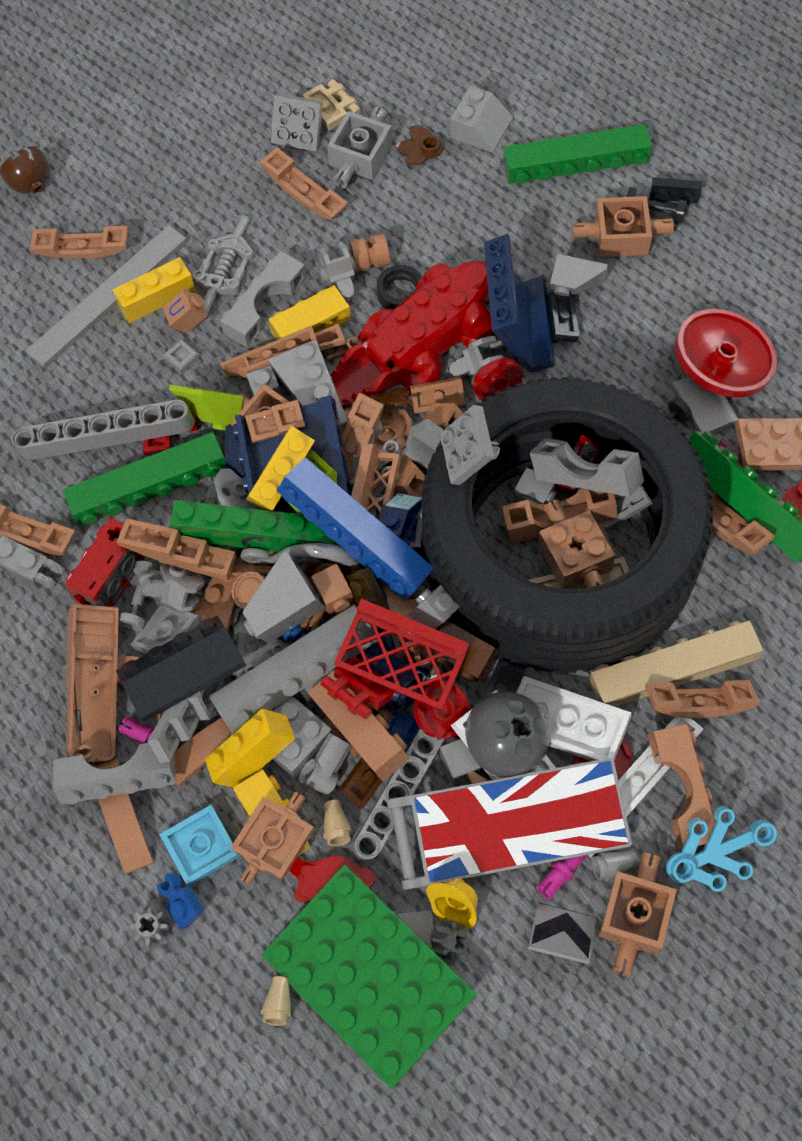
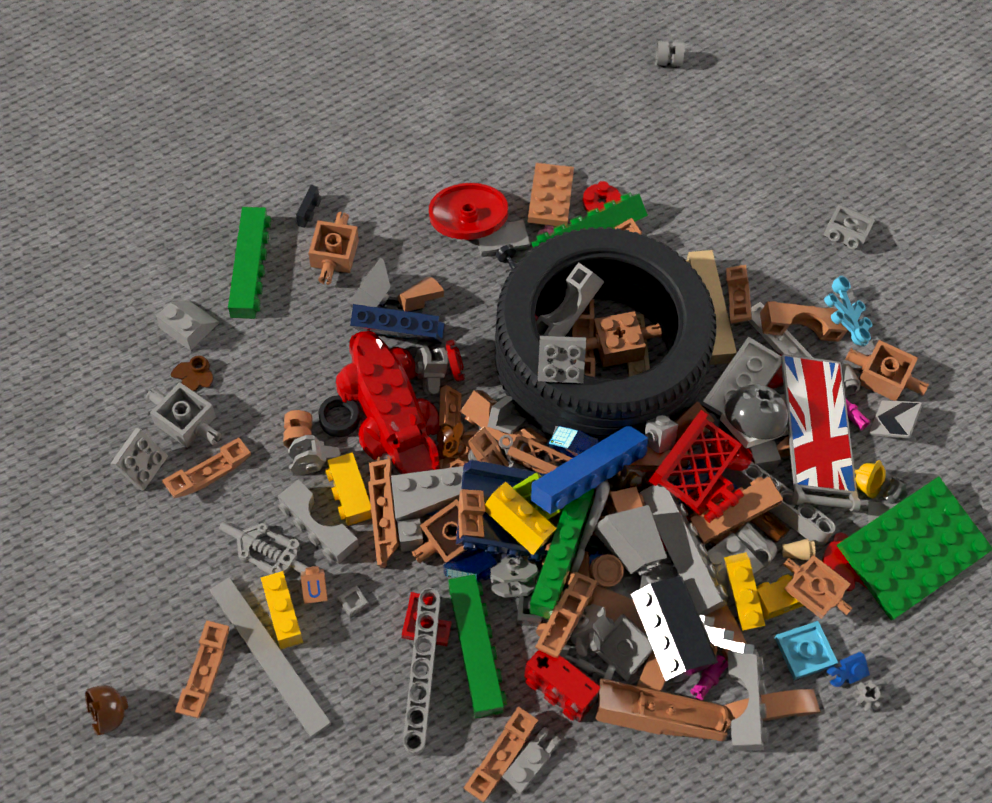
camera: 85 degrees left, 5 degrees down
(210, 405) = (420, 573): lime slope -> none
(277, 1005) = (930, 613): tan cone -> none
(332, 110) = (115, 438): tan plate -> none
(585, 328) = (415, 296): none -> nougat slope
(660, 206) = (327, 208): black wheel -> none

